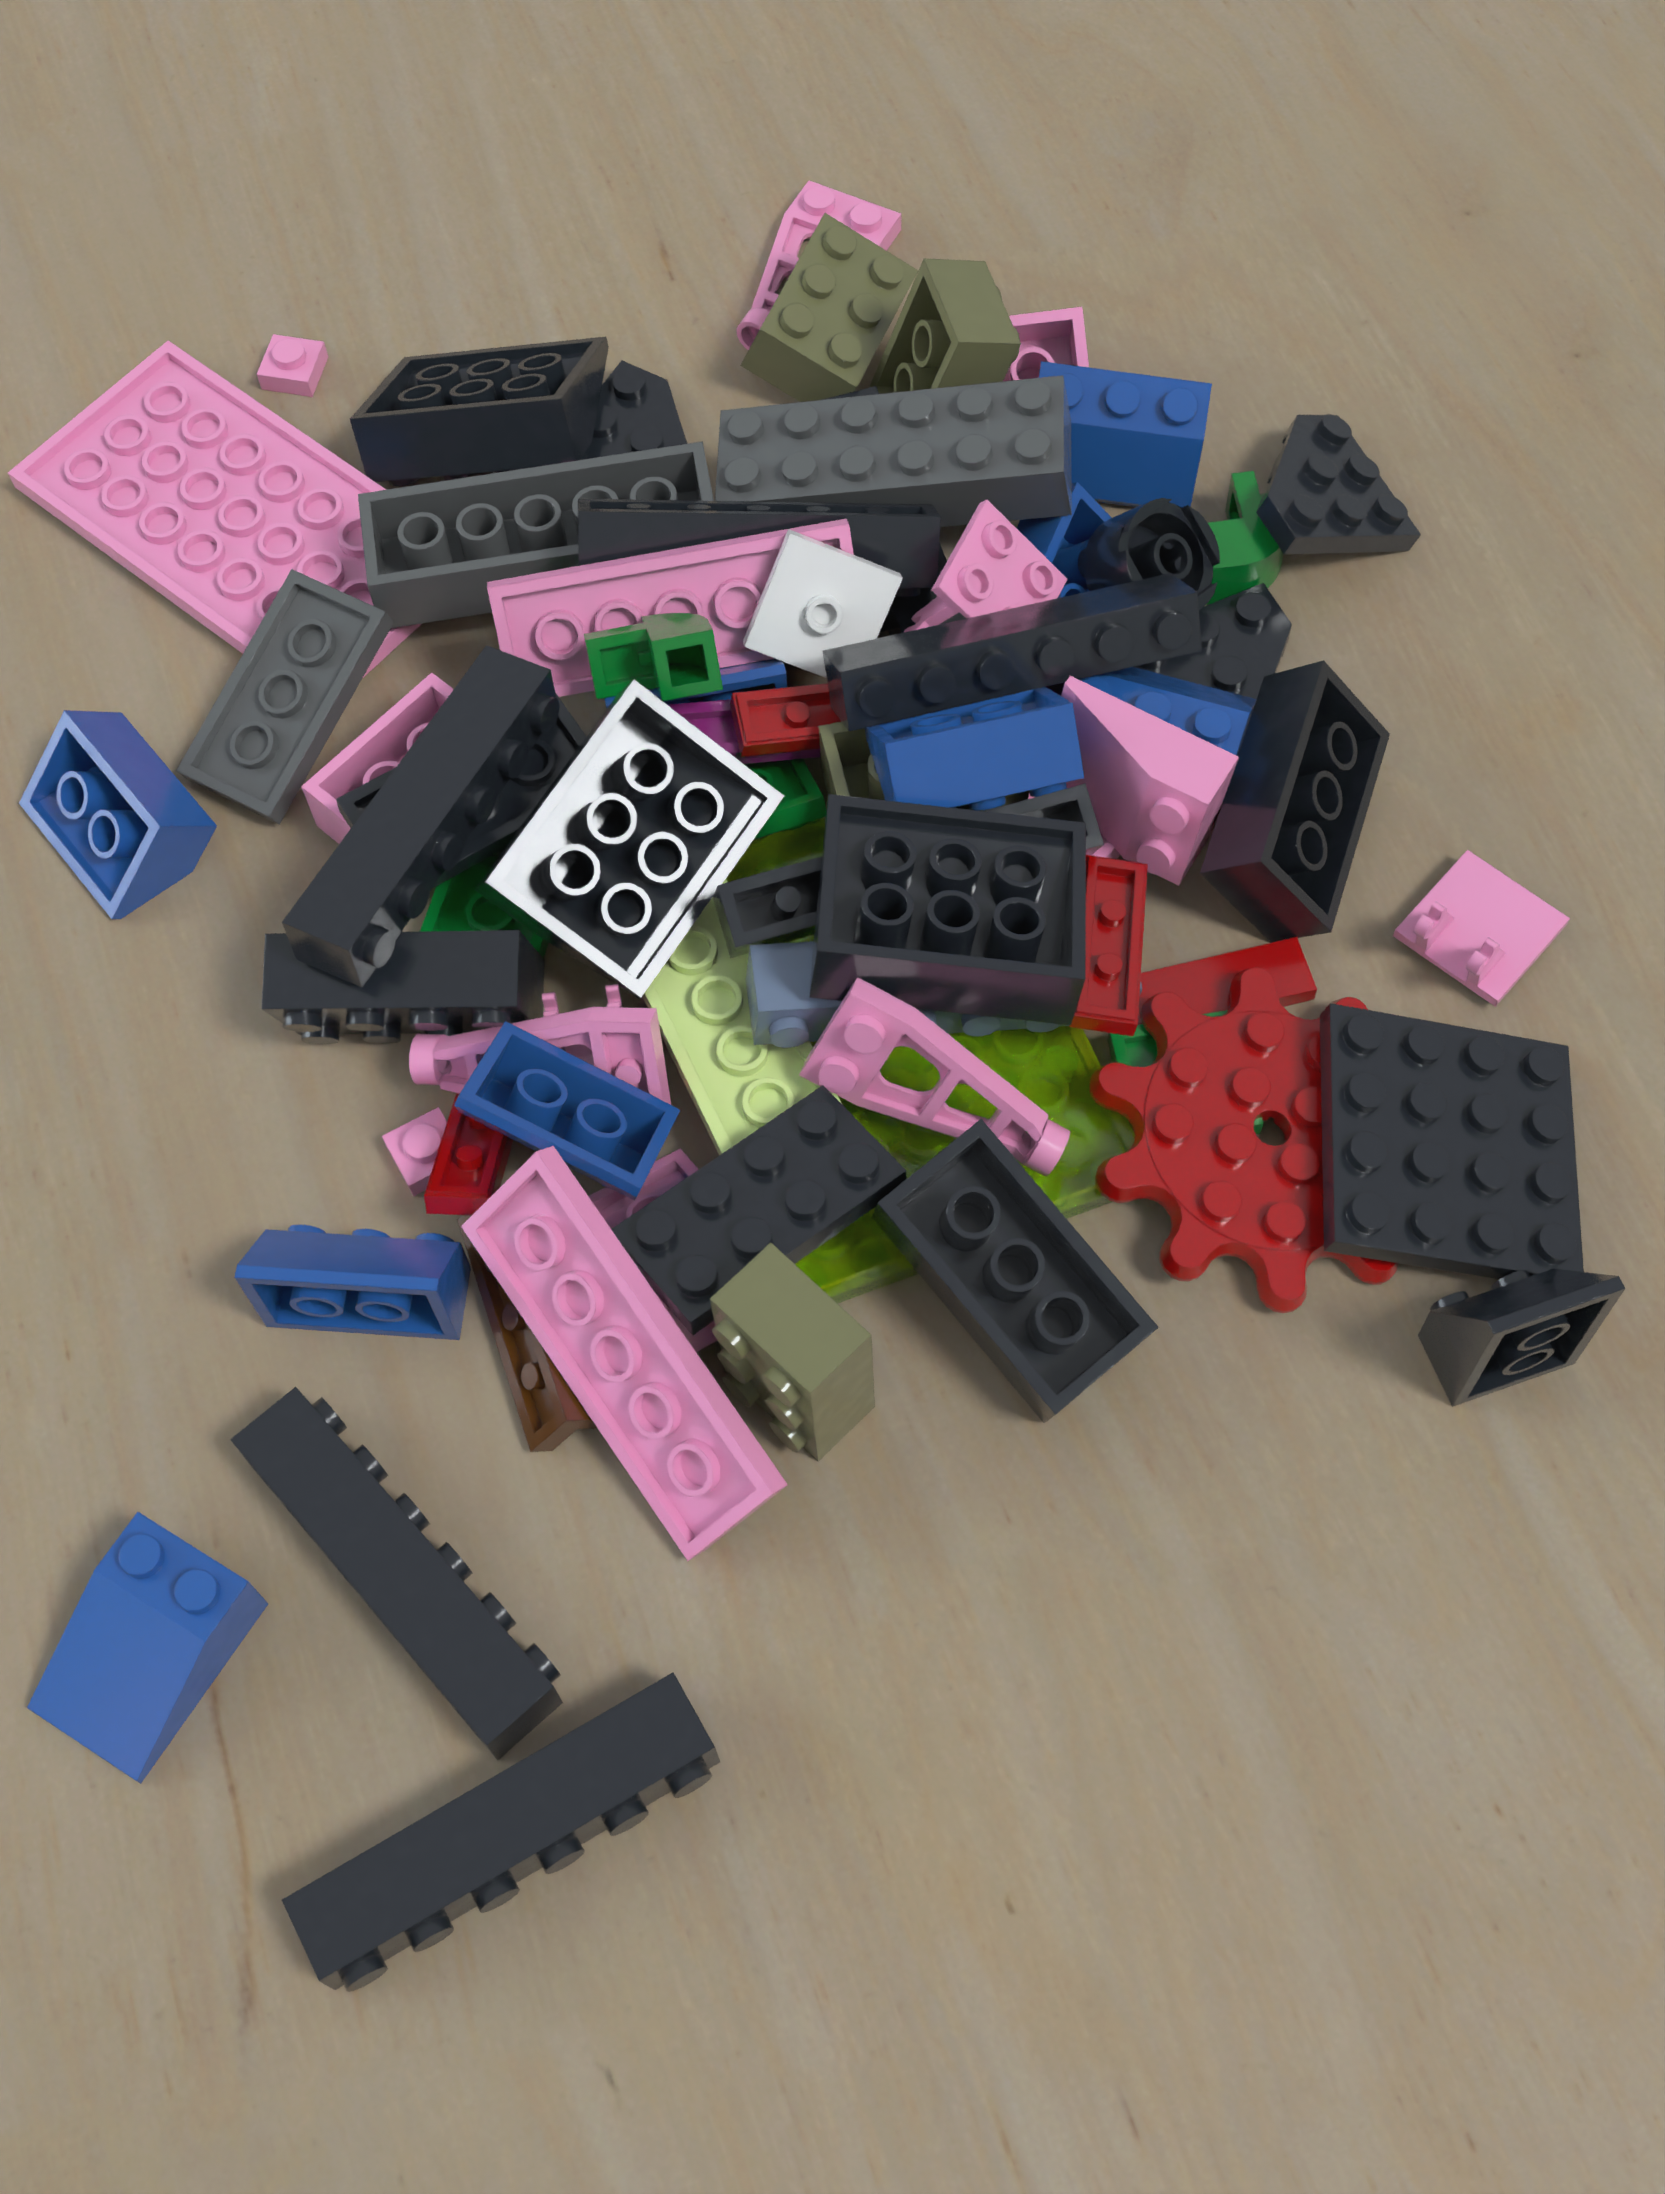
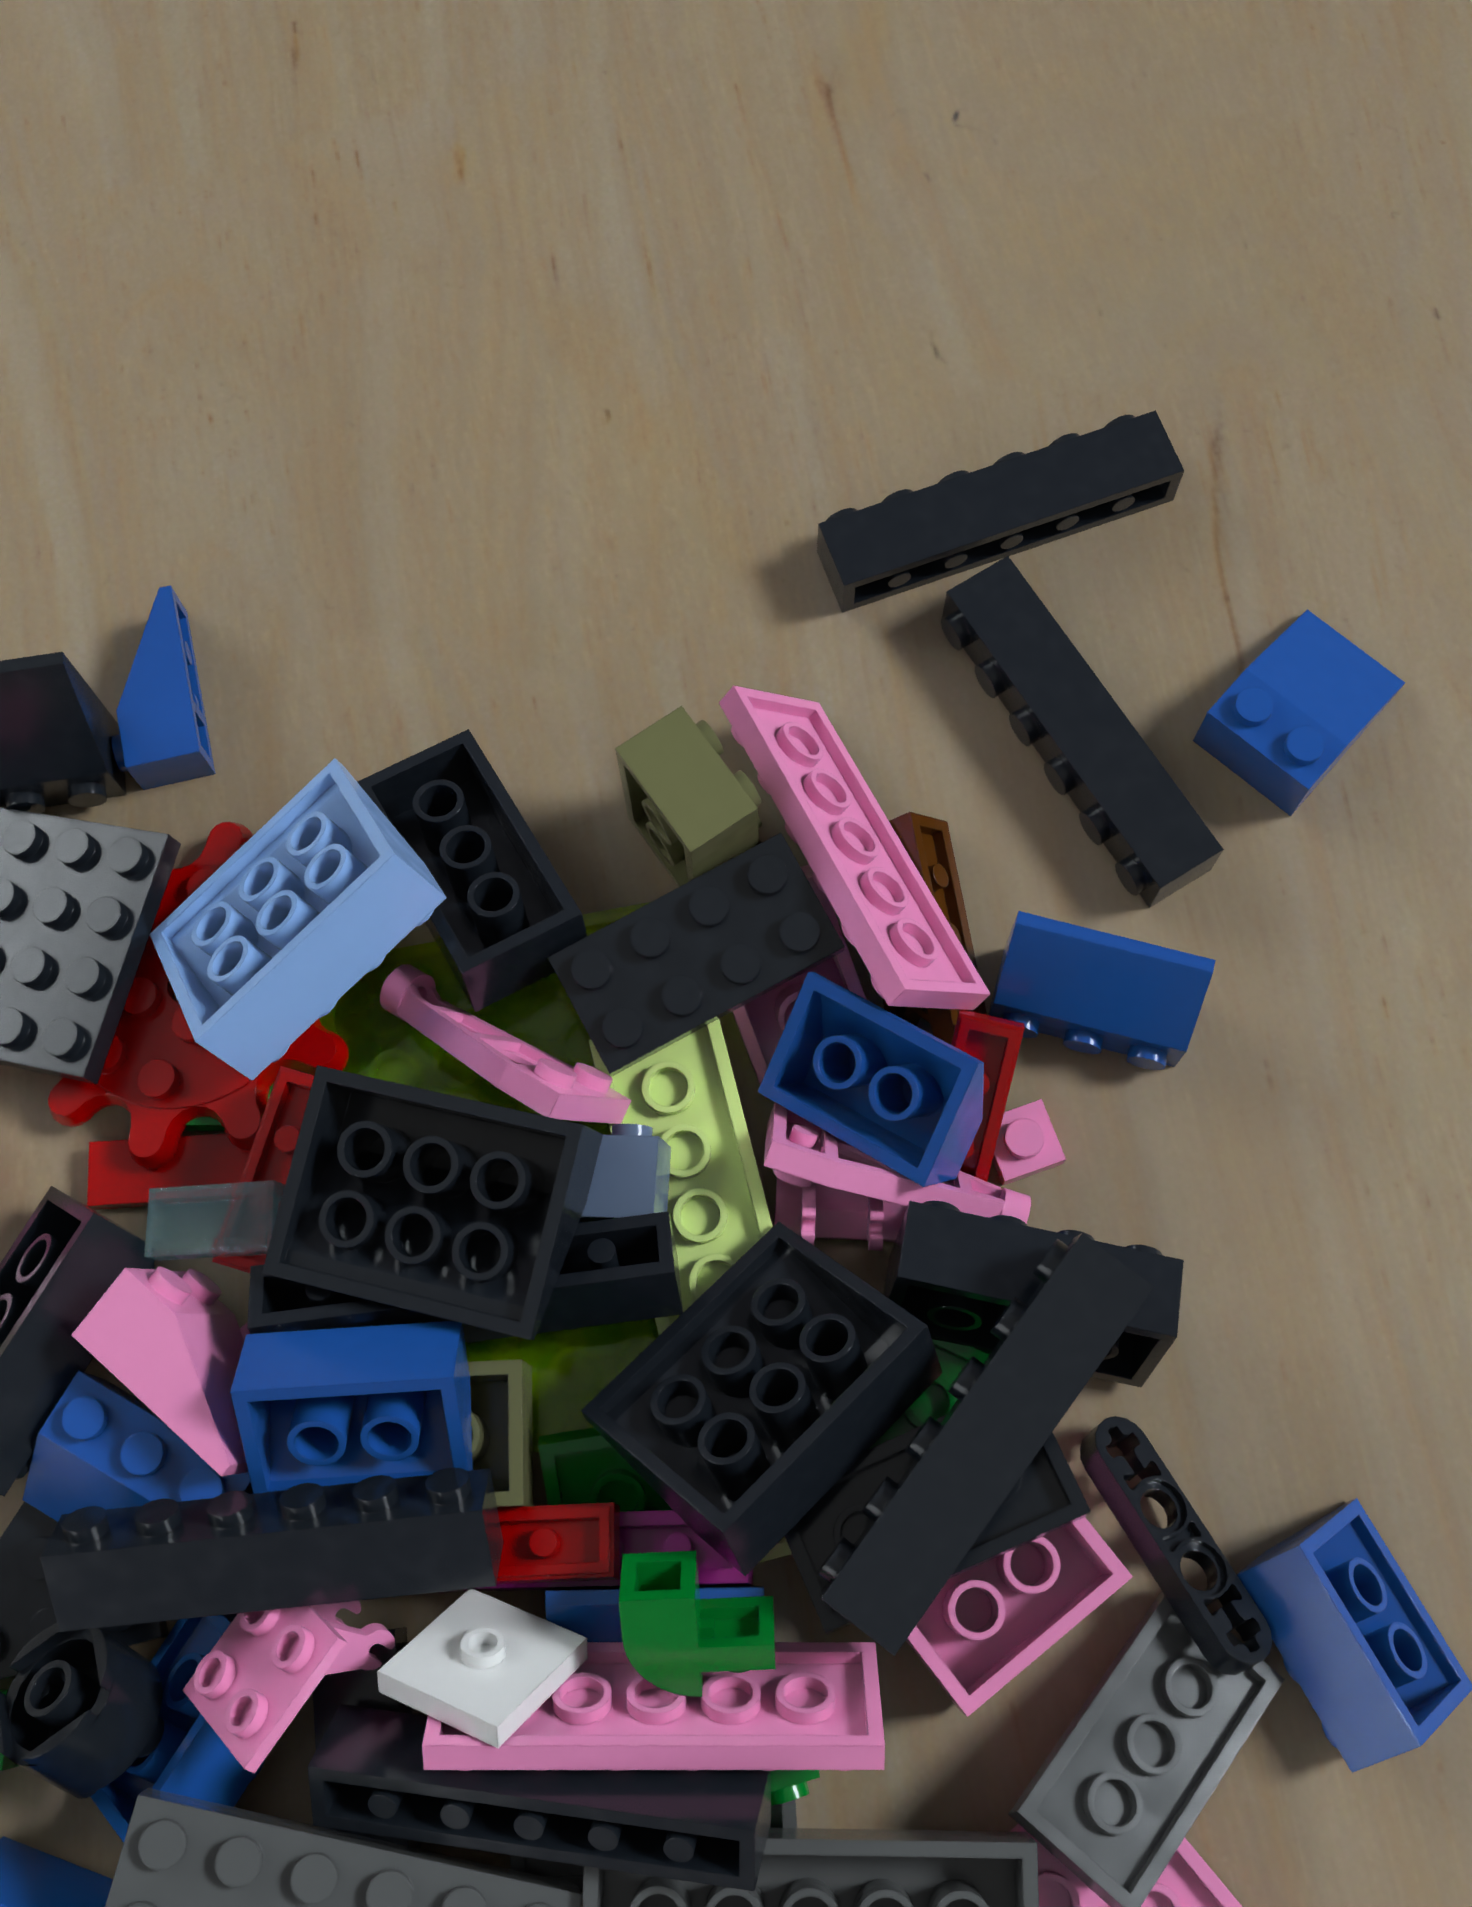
camera: 170 degrees left, 10 degrees up
(276, 831) = (1182, 1538): none -> black beam
(1153, 886) = (211, 1220): none -> clear light blue tile
(1171, 1160) = (293, 921): none -> light blue slope
(1403, 1407) = (162, 703): none -> blue slope

